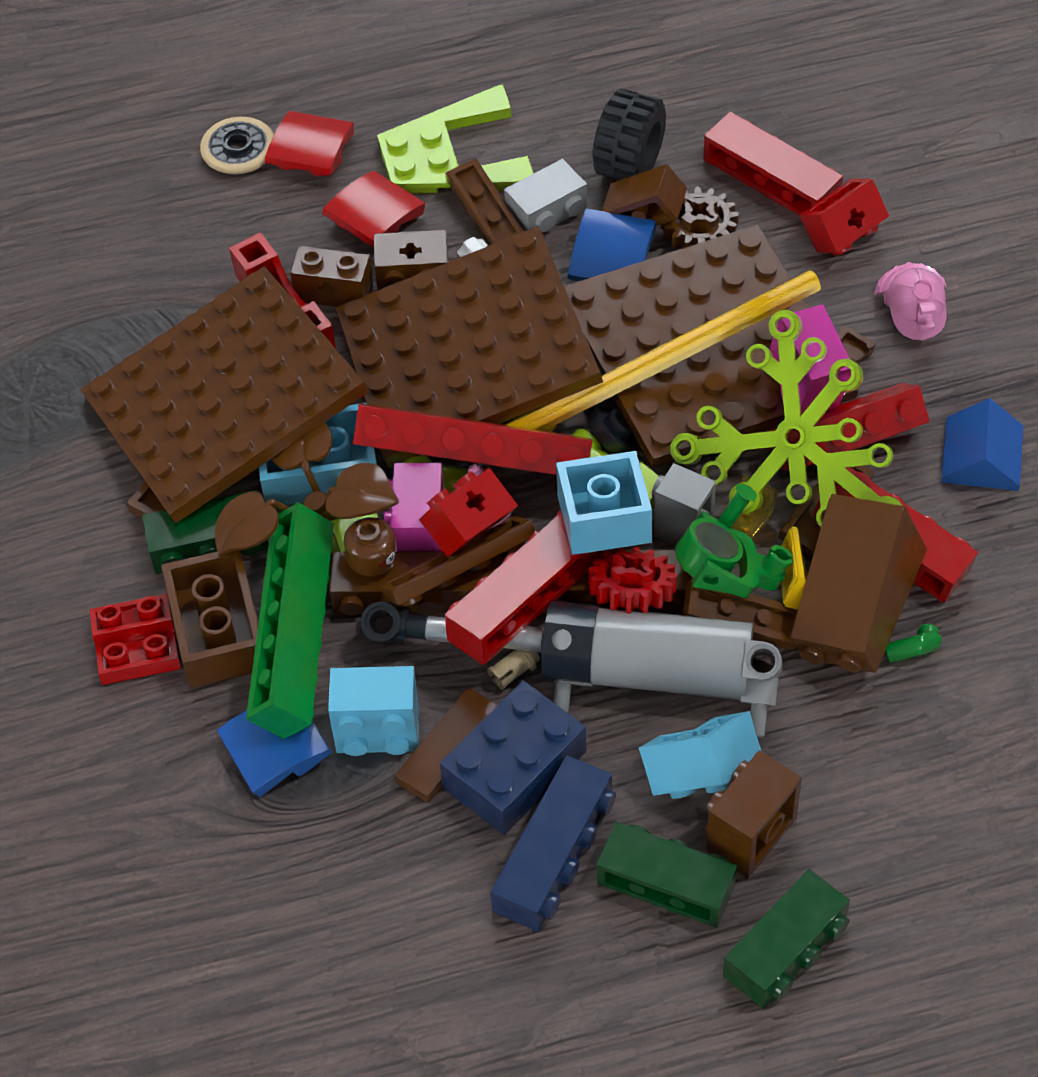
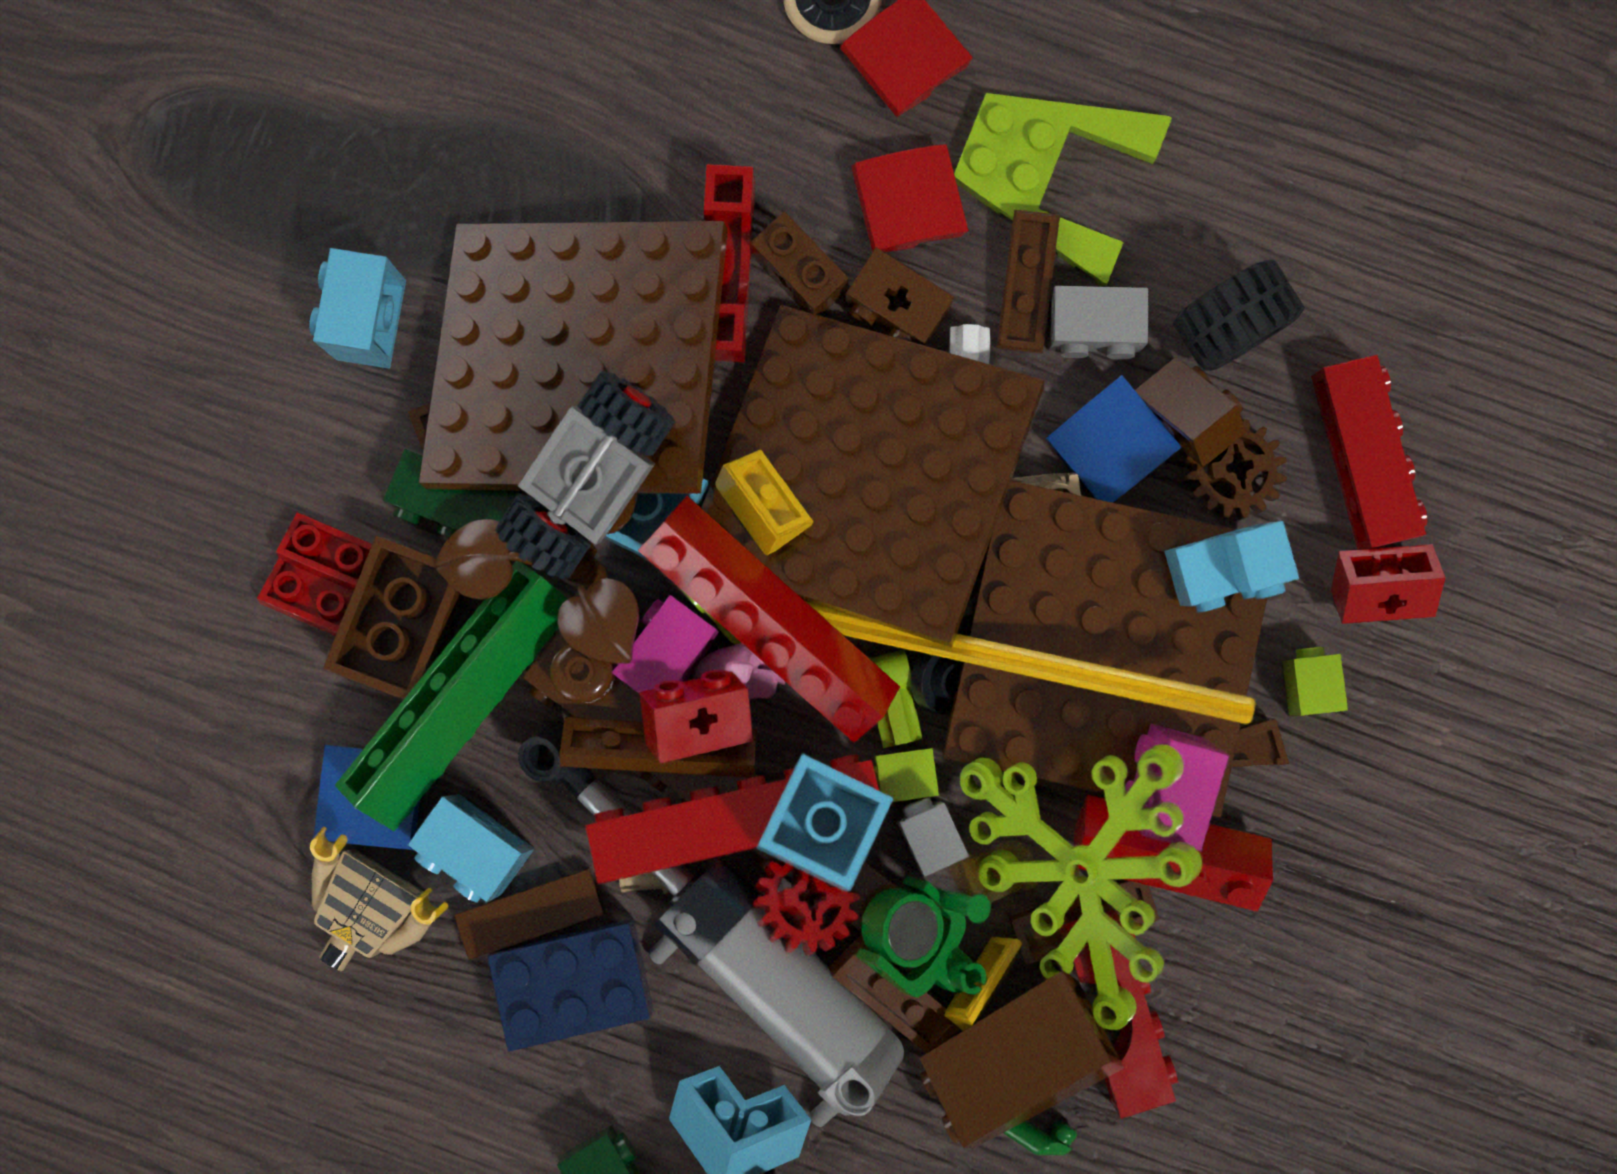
camera: 30 degrees right, 30 degrees up
(48, 459) = (358, 308): none -> medium azure brick
(284, 413) = (585, 475): none -> plate
(325, 804) = (364, 904): none -> torso
(412, 390) = (762, 501): none -> yellow slope
(552, 843) = (542, 1099): dark blue brick -> none
(740, 233) = (1242, 561): none -> medium azure brick
(851, 294) = (1314, 683): none -> lime brick
(915, 299) = (1378, 734): bright pink helmet -> none
(983, 447) = (1291, 965): blue slope -> none

